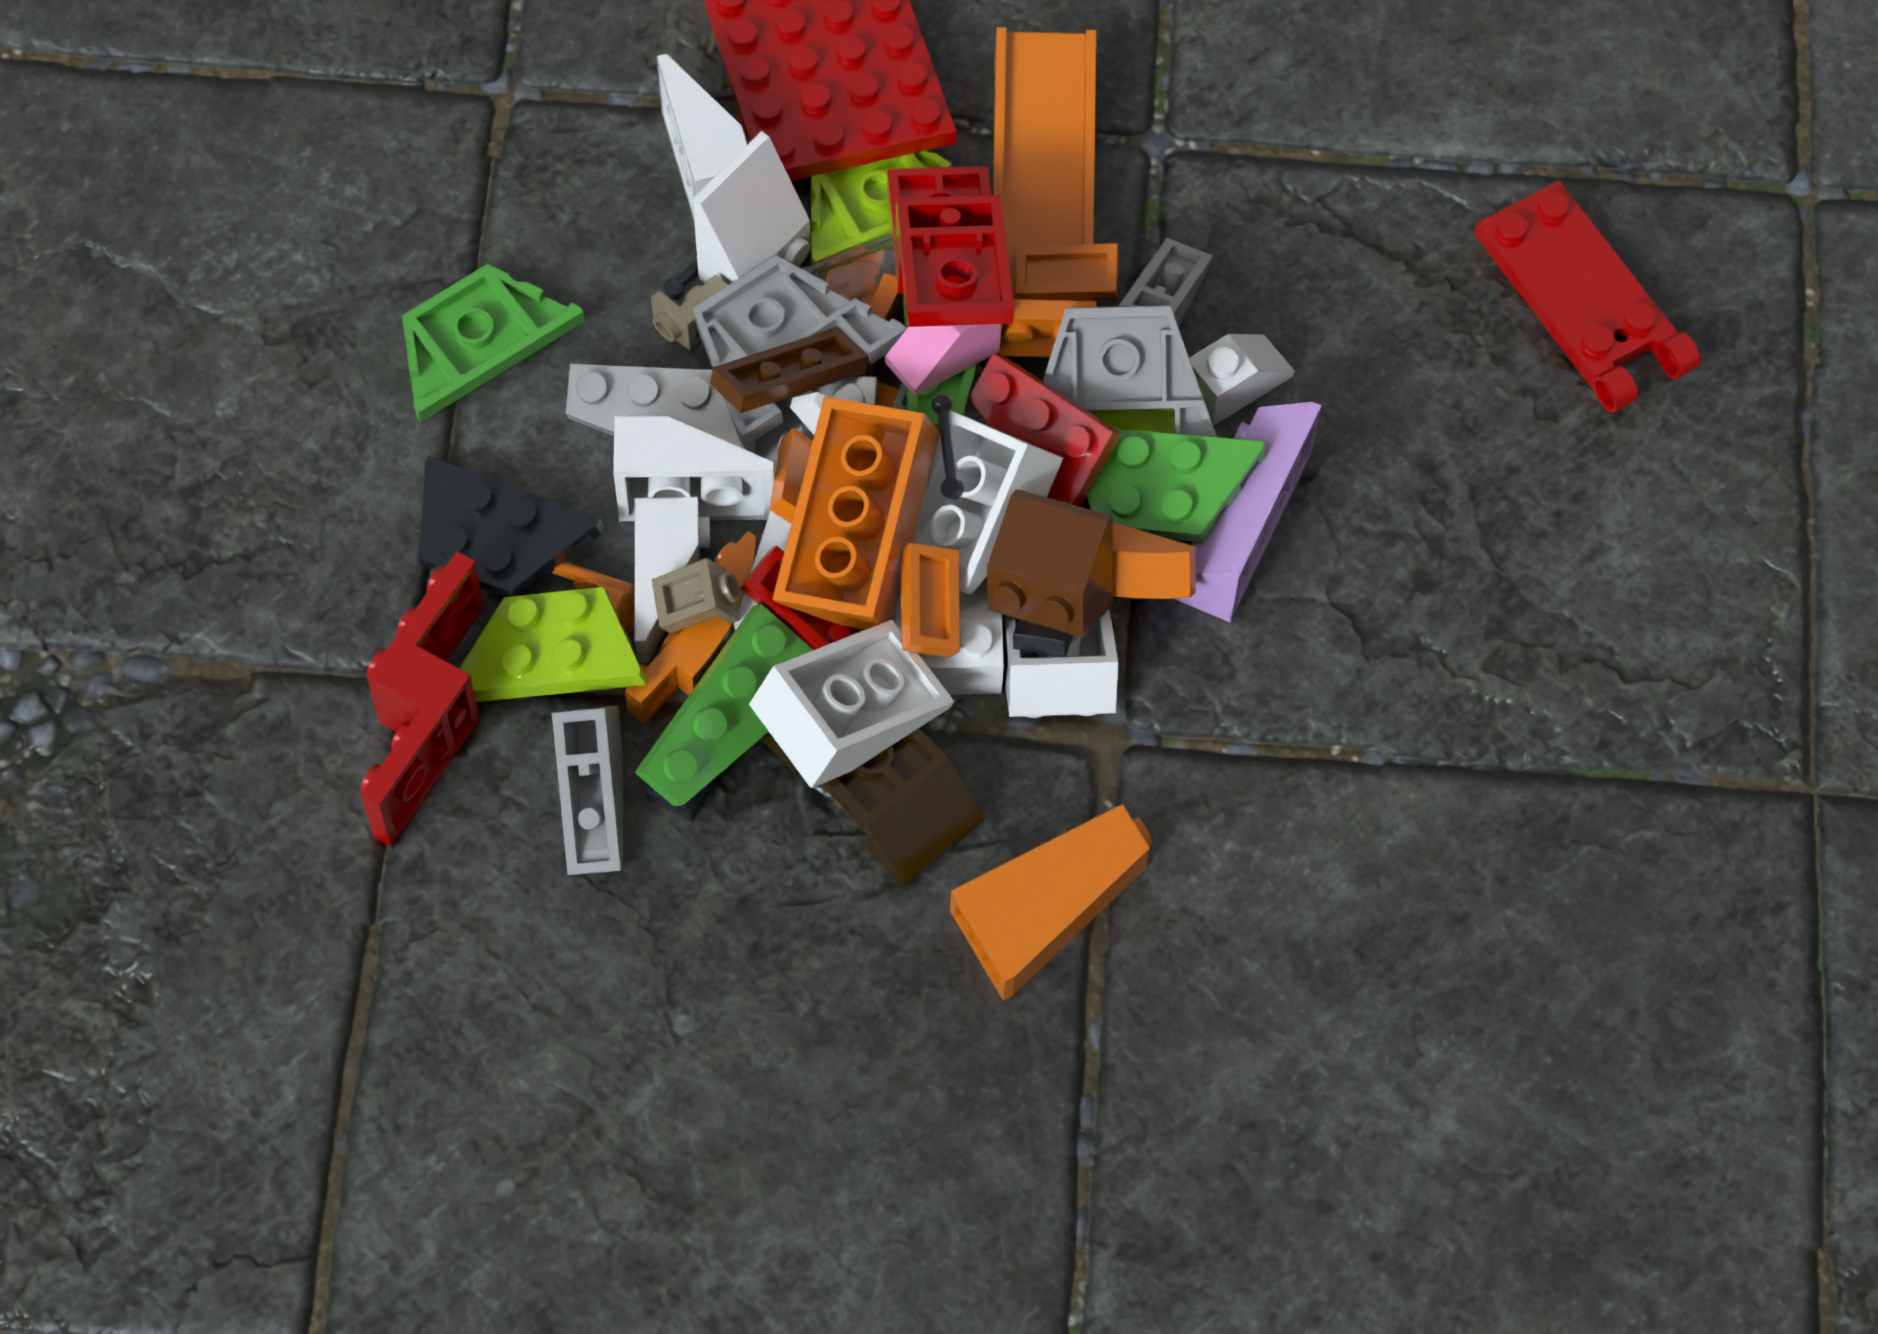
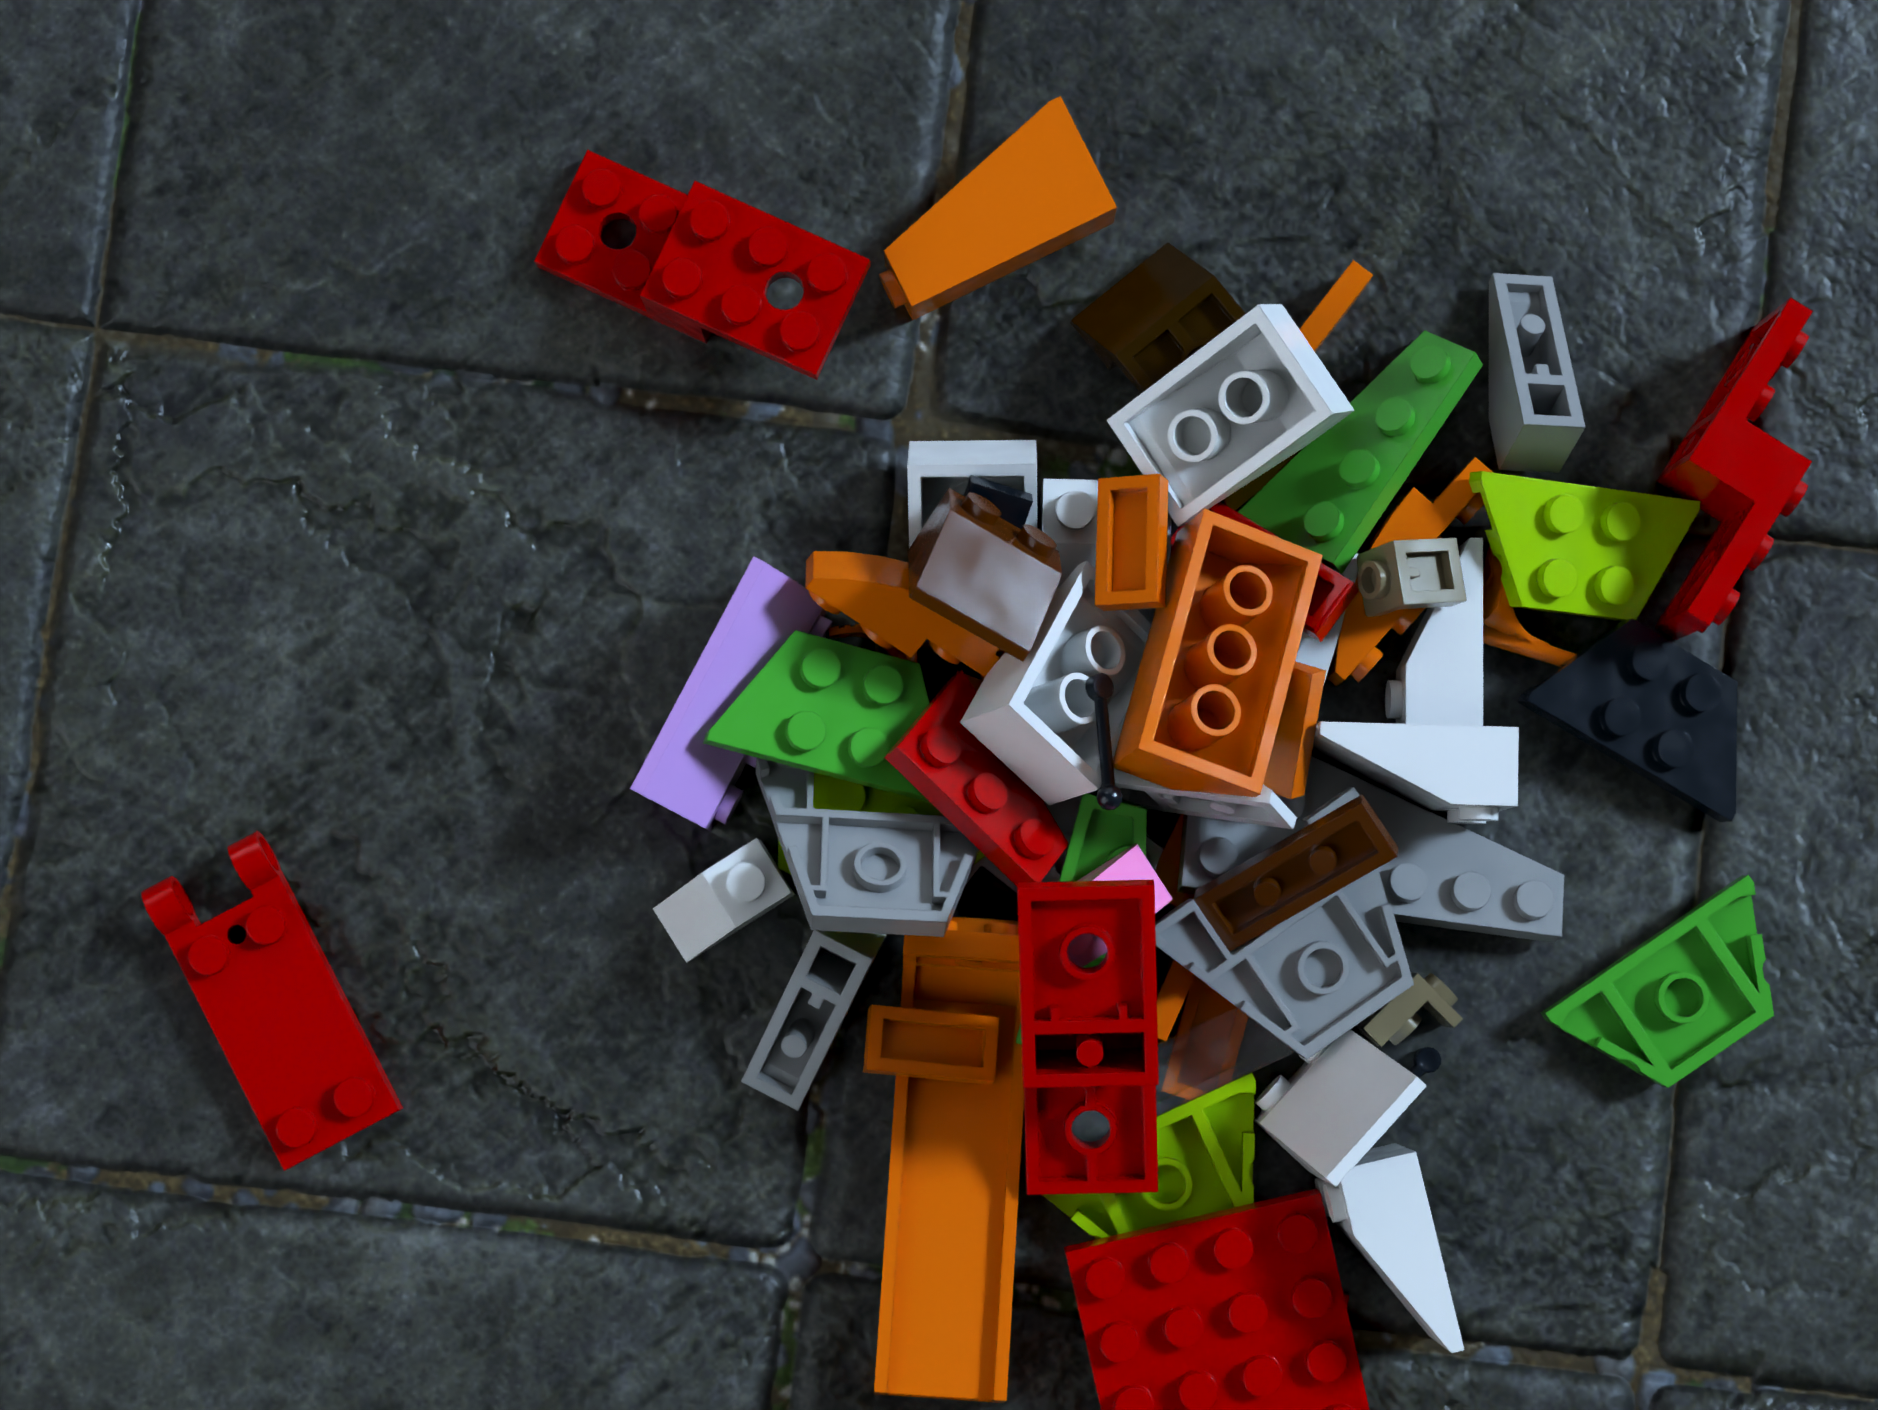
camera: 175 degrees left, 20 degrees up
(768, 820) = (1335, 304): none -> orange tile
(1304, 838) = (703, 263): none -> red bracket

